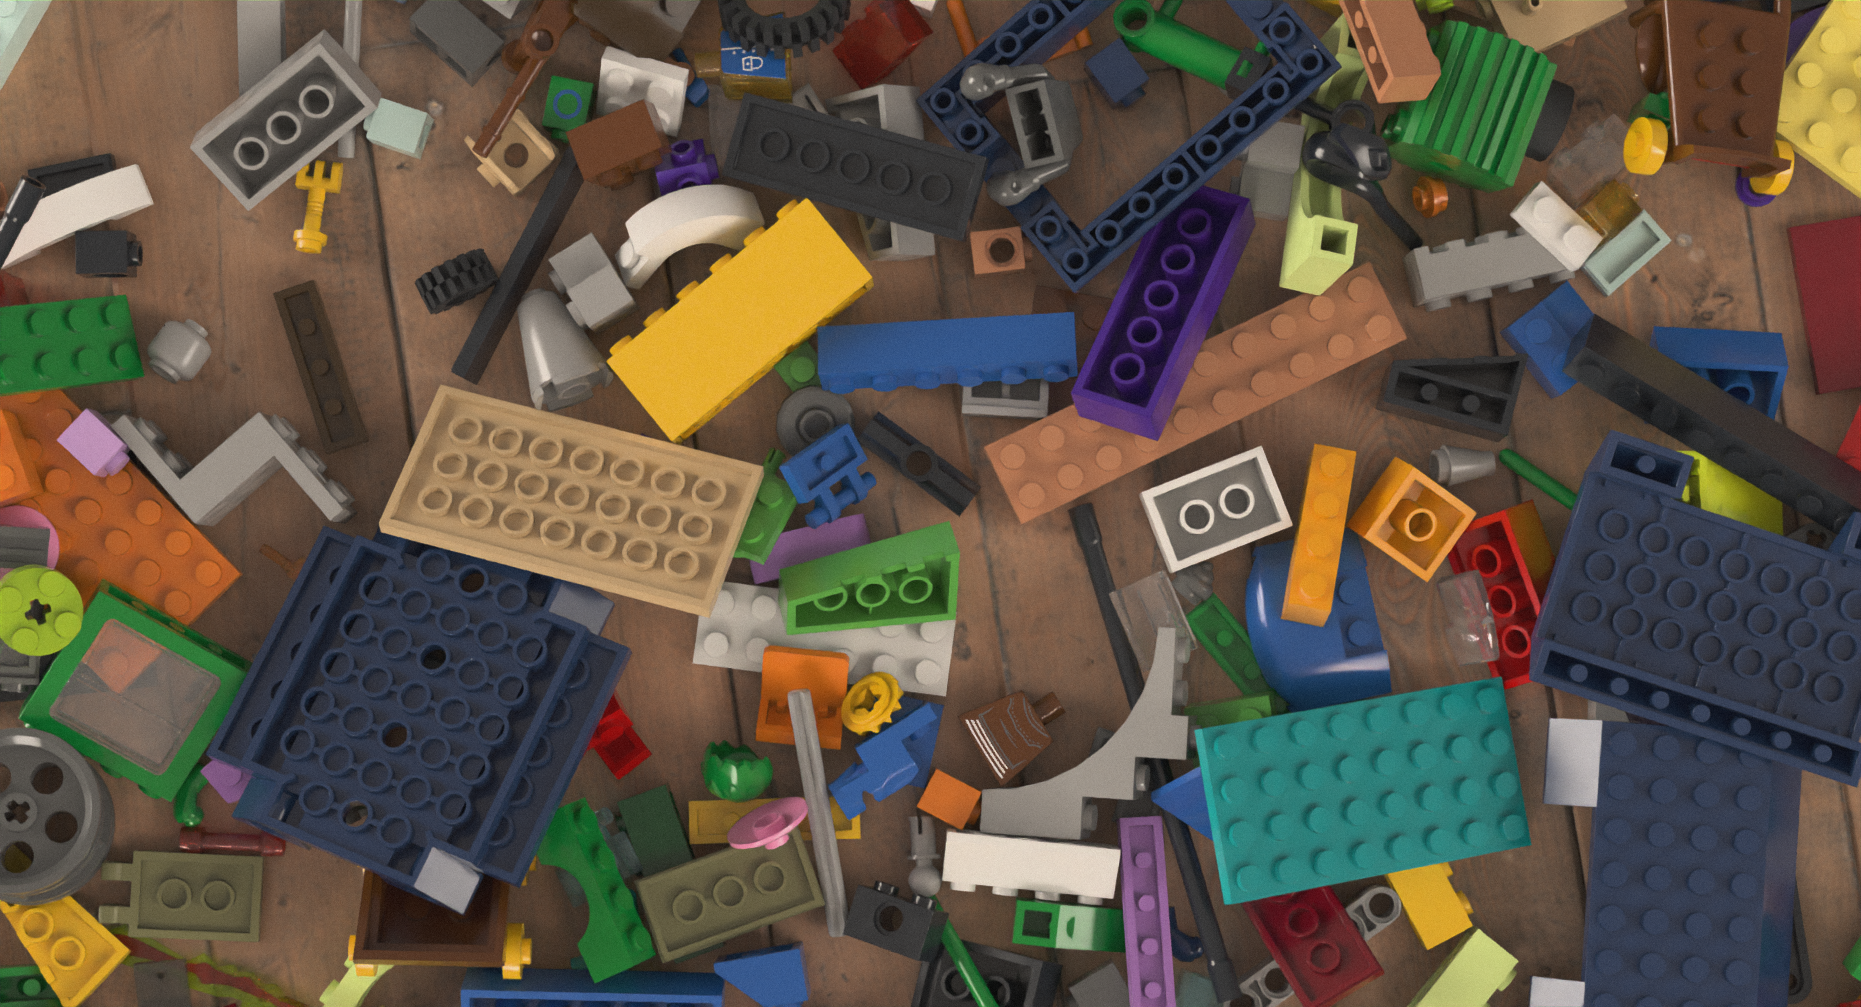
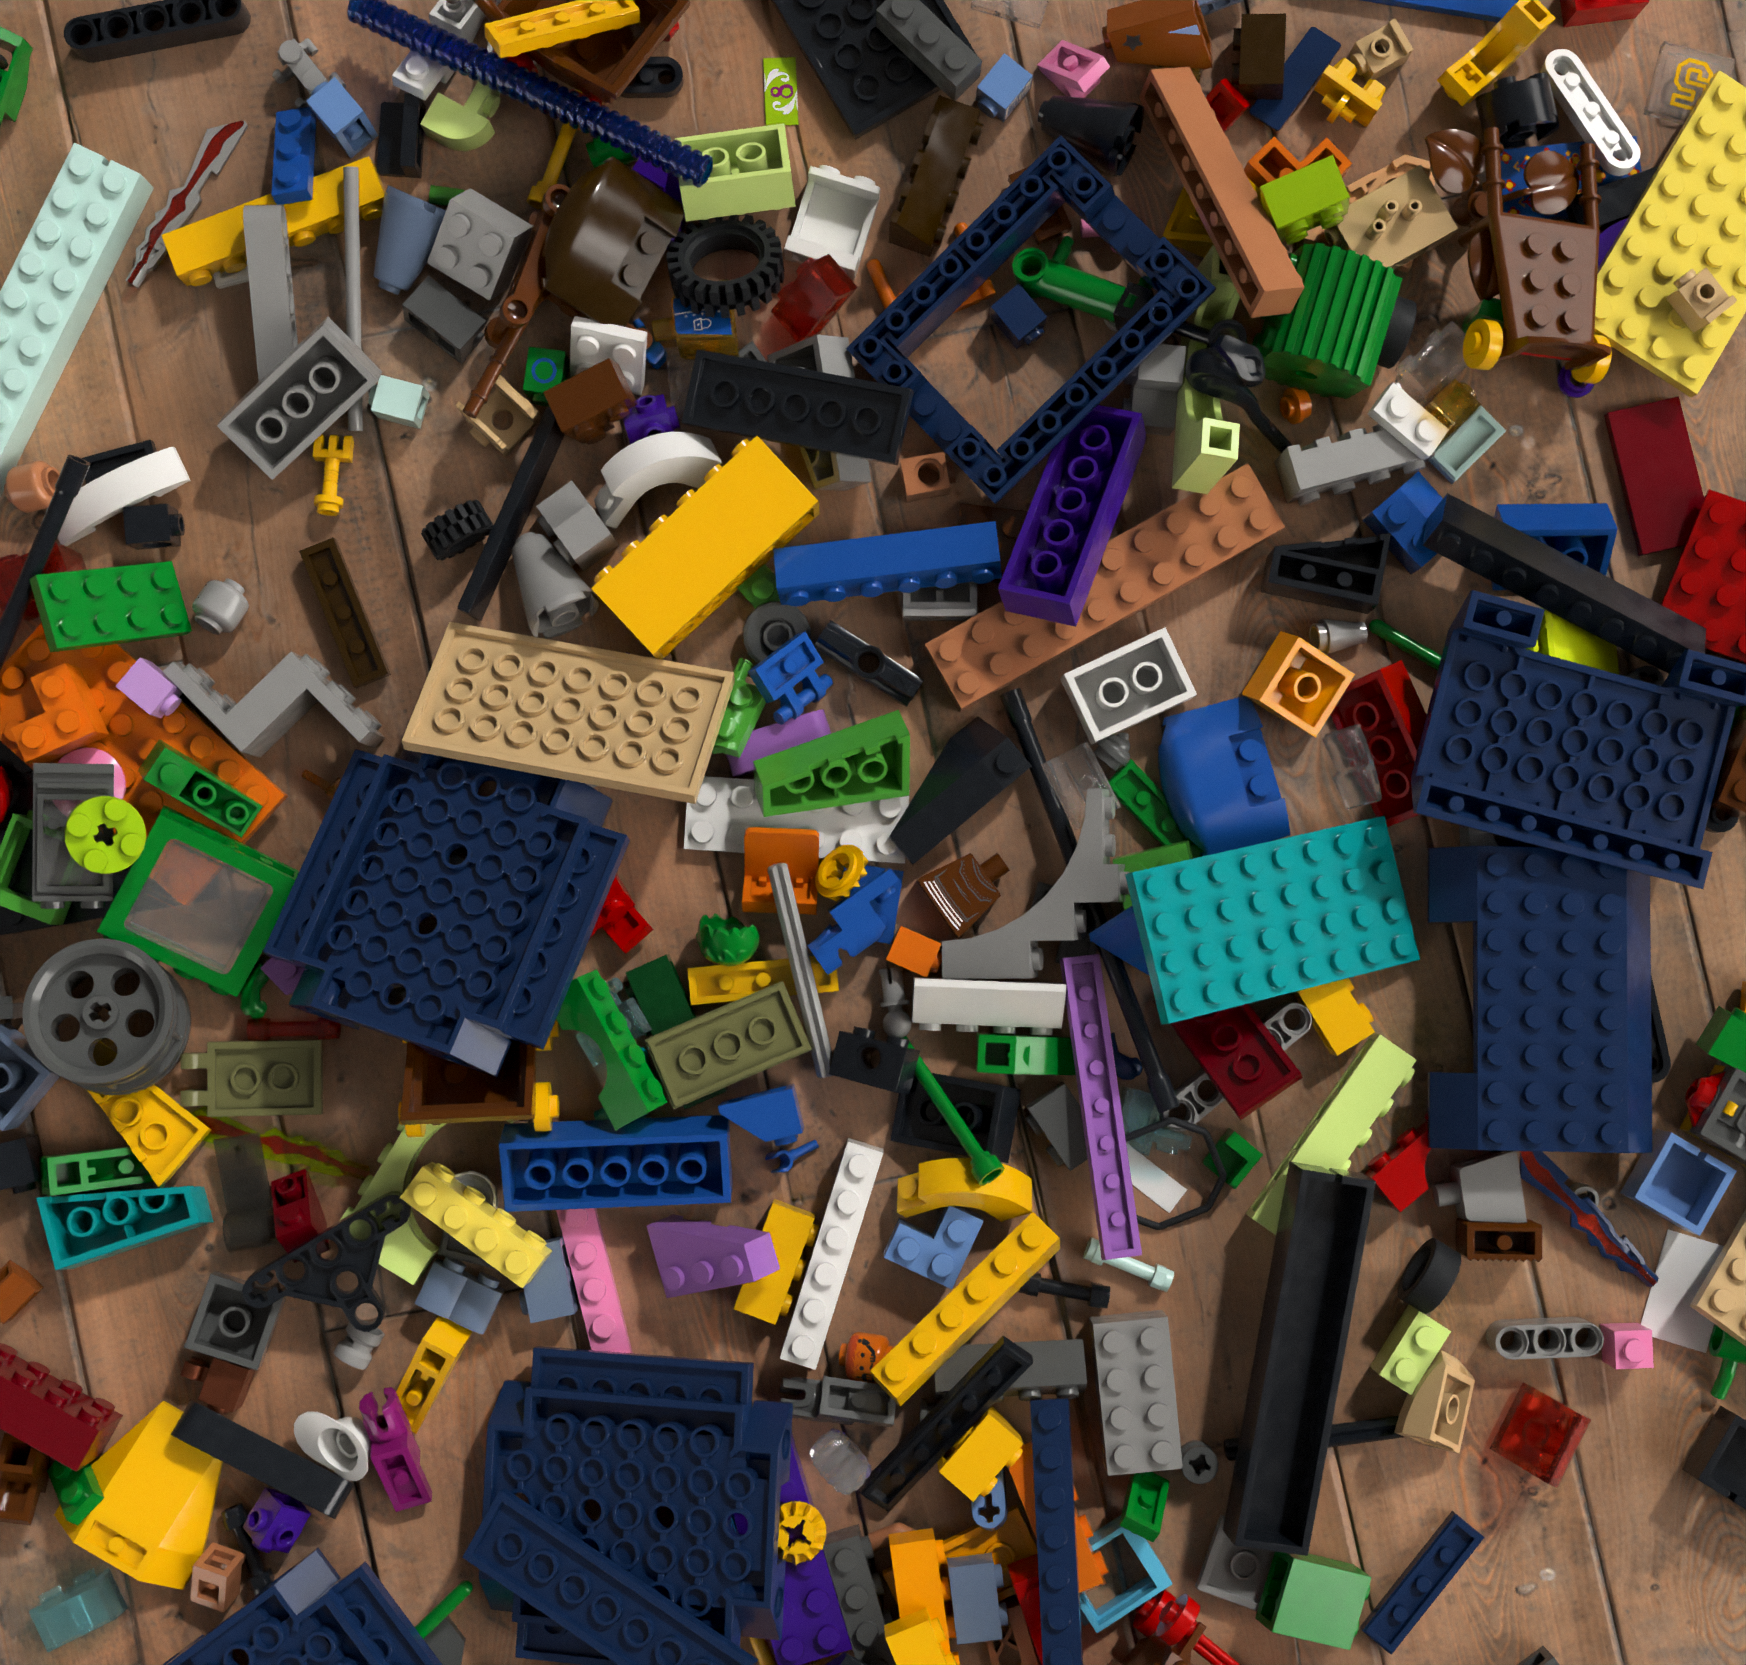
camera: 10 degrees left, 0 degrees up
(143, 561) = (199, 788): none -> green slope
(768, 824) = (758, 982): bright pink dish -> none
(1020, 603) = (963, 780): none -> black wedge
(1042, 119) = (957, 358): dark grey torso -> none
(1318, 535) = (1219, 702): light orange brick -> none

